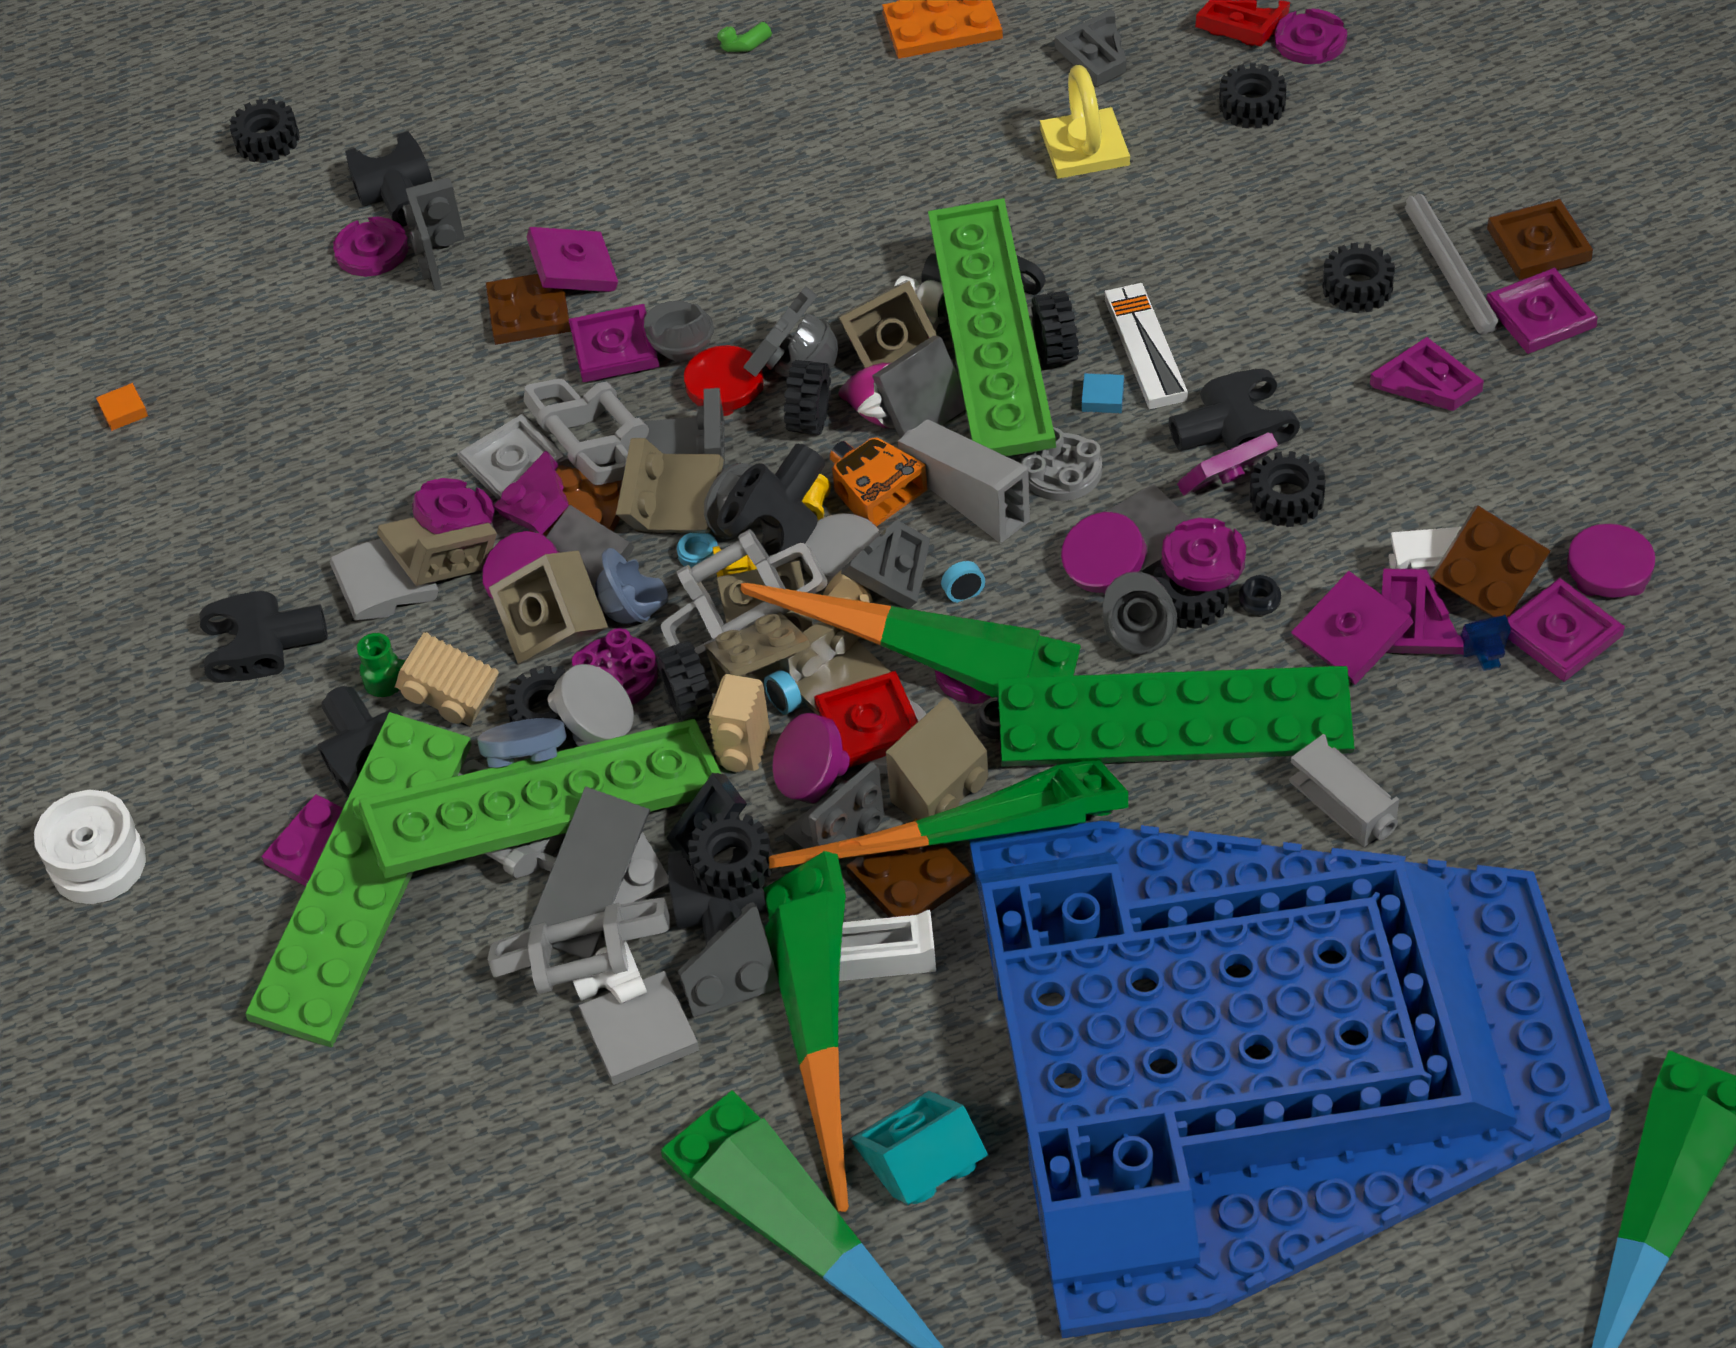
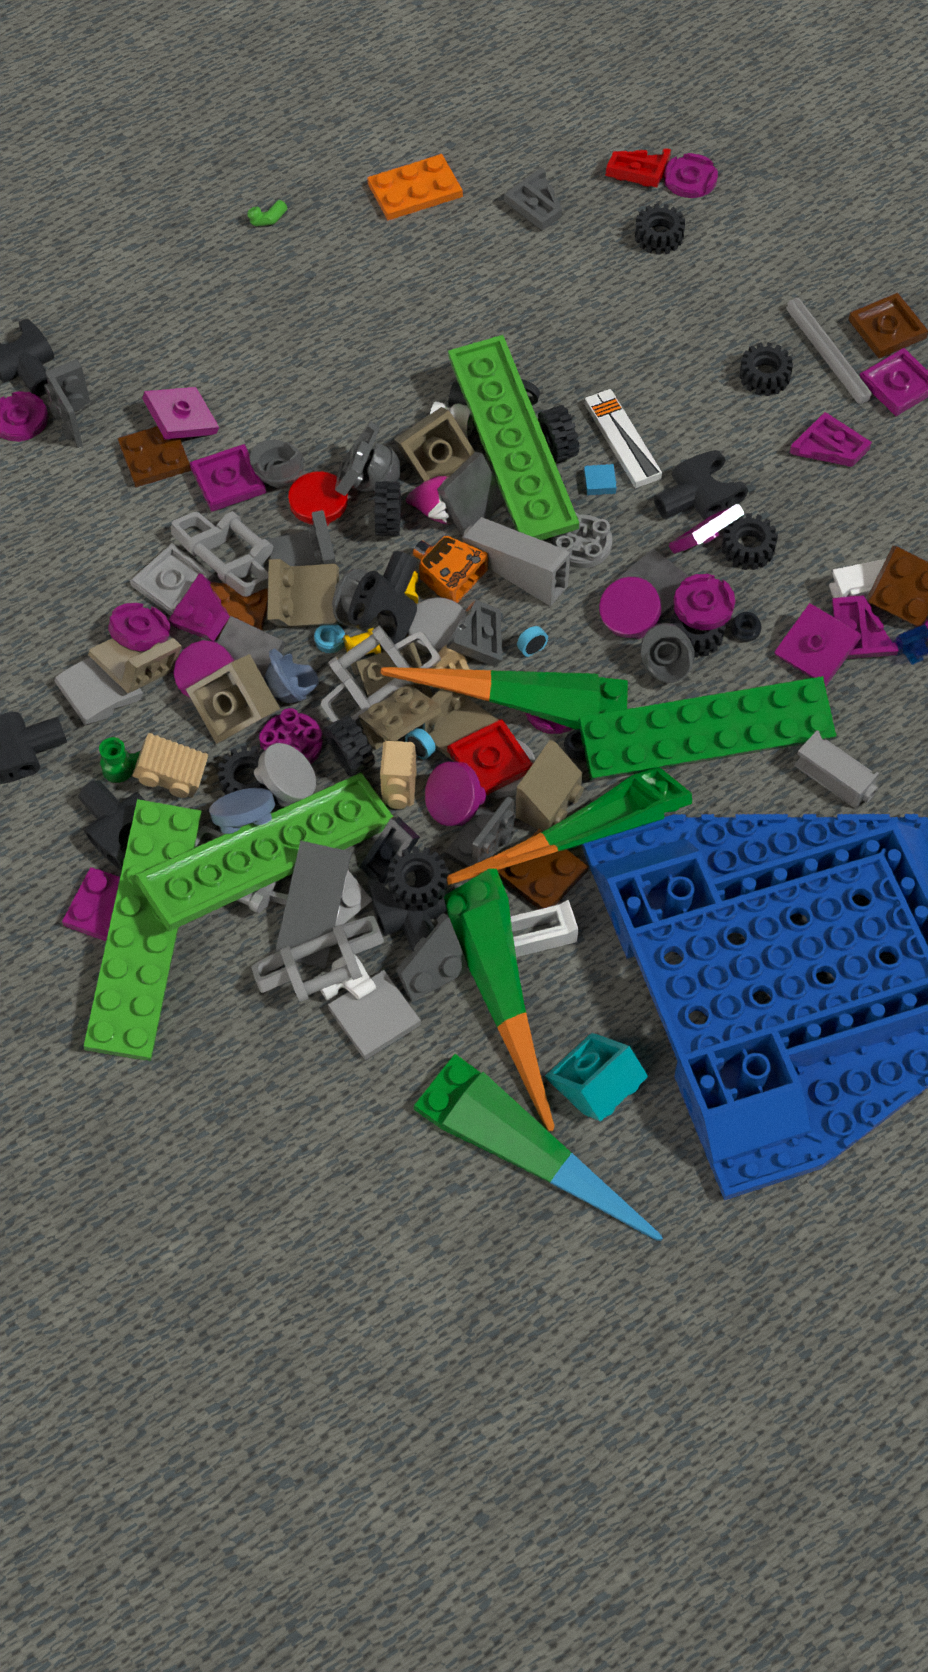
camera: 15 degrees left, 10 degrees up
(1088, 137) = (542, 275): light yellow tile -> none

